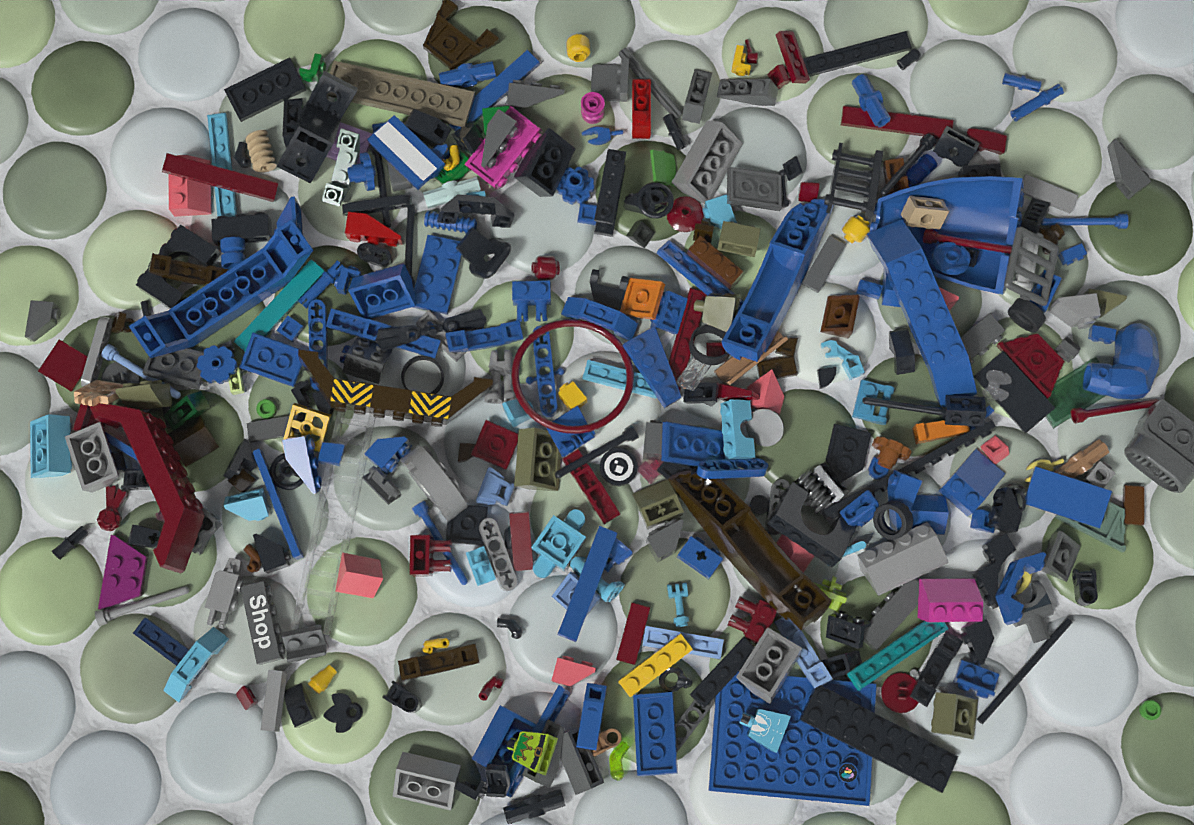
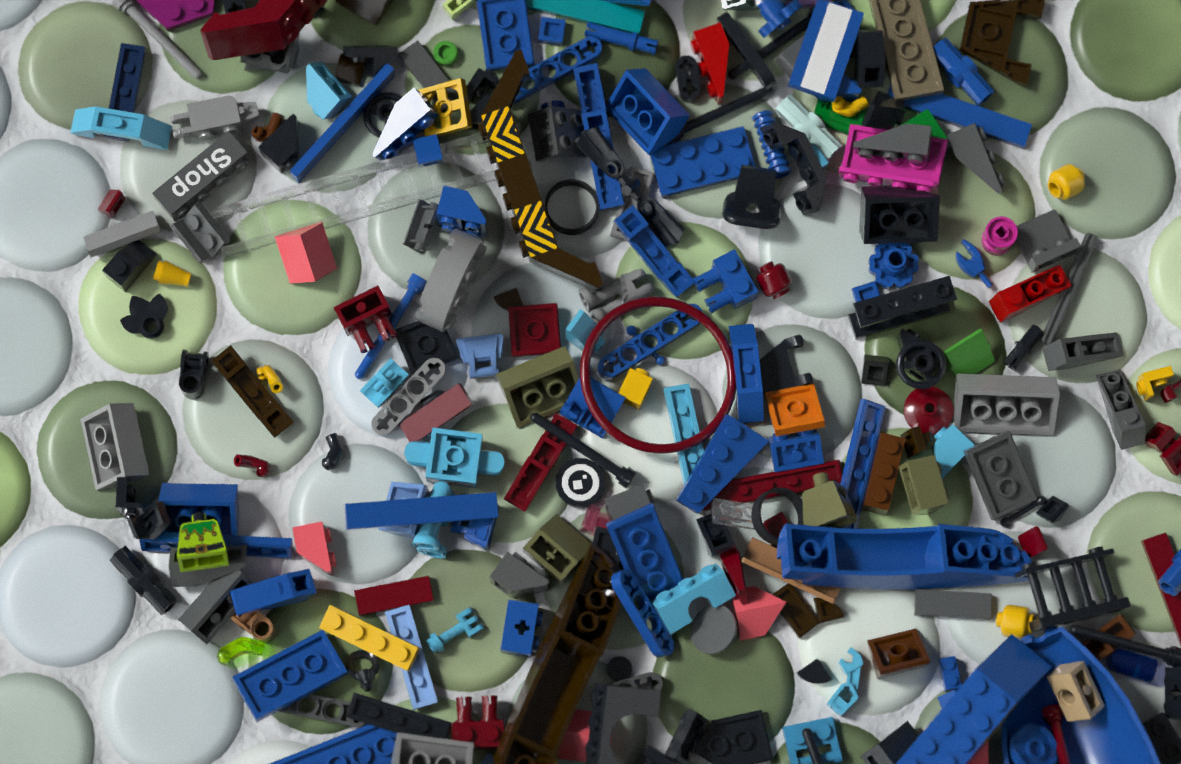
camera: 60 degrees right, 0 degrees up
(343, 280) = (636, 60): blue bracket -> none
(815, 493) = (664, 723): dark grey piece -> none

